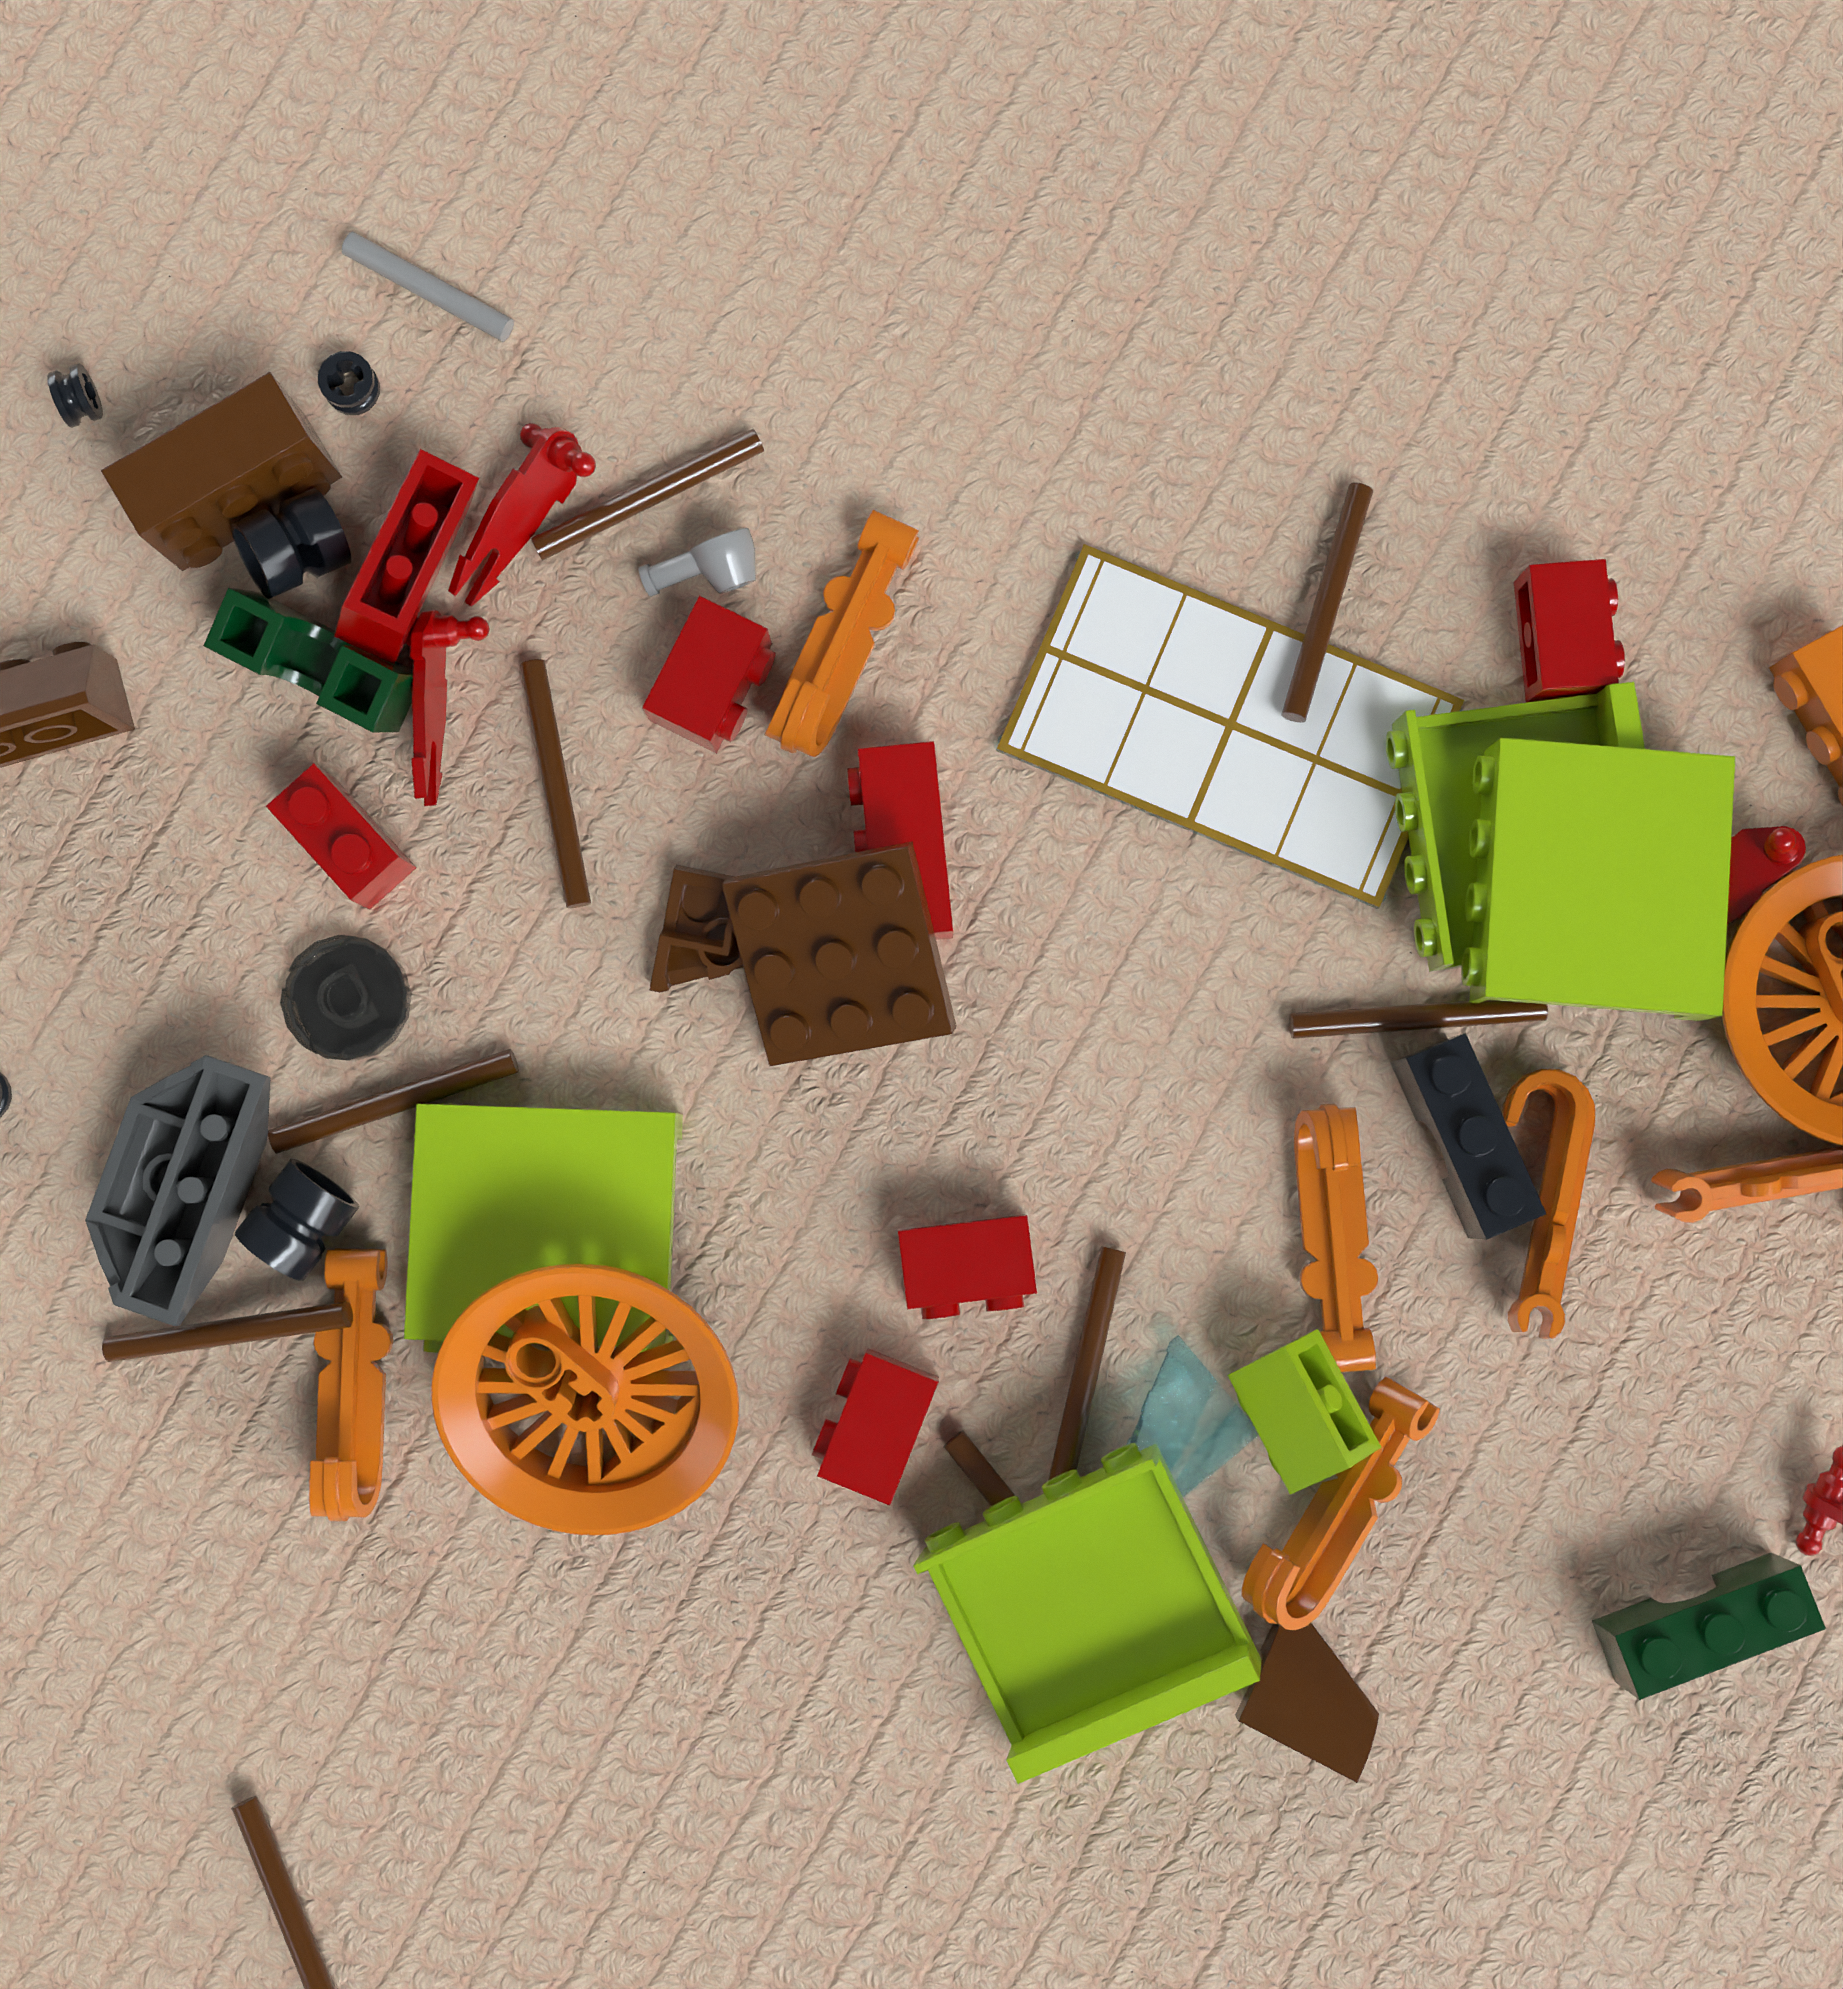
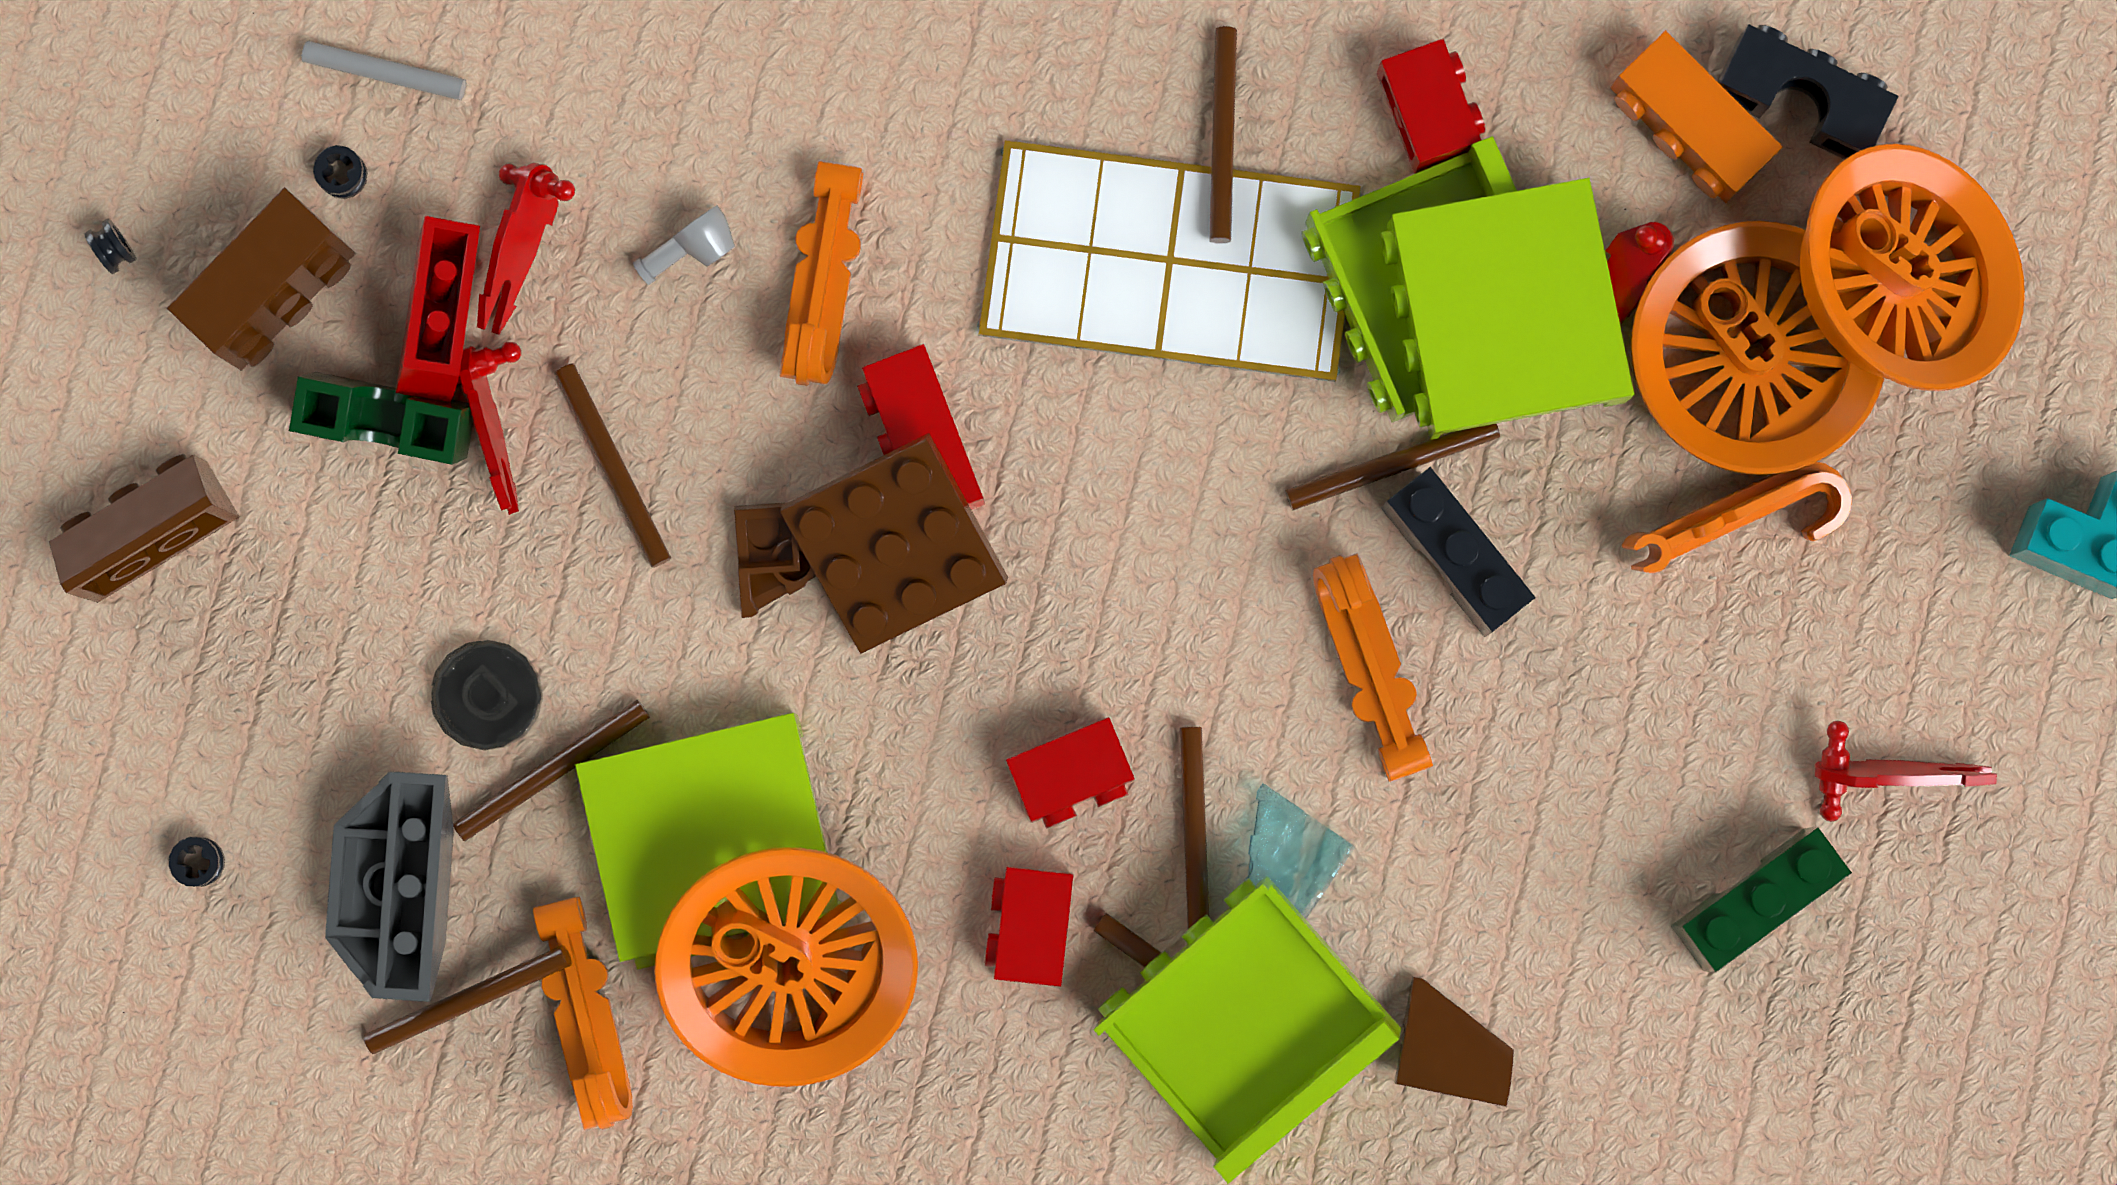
camera: 15 degrees left, 0 degrees up
(288, 544) = (340, 317): black wheel -> none
(291, 1228) = (500, 888): black wheel -> none
(341, 837) = (446, 560): red brick -> none
(647, 494) = (622, 198): reddish brown bar -> none
(710, 675) = (720, 339): red brick -> none
(1300, 1580) = (1416, 956): orange piece -> none
(1304, 1412) = (1381, 815): lime brick -> none
(1558, 1192) = (1546, 577): orange piece -> none

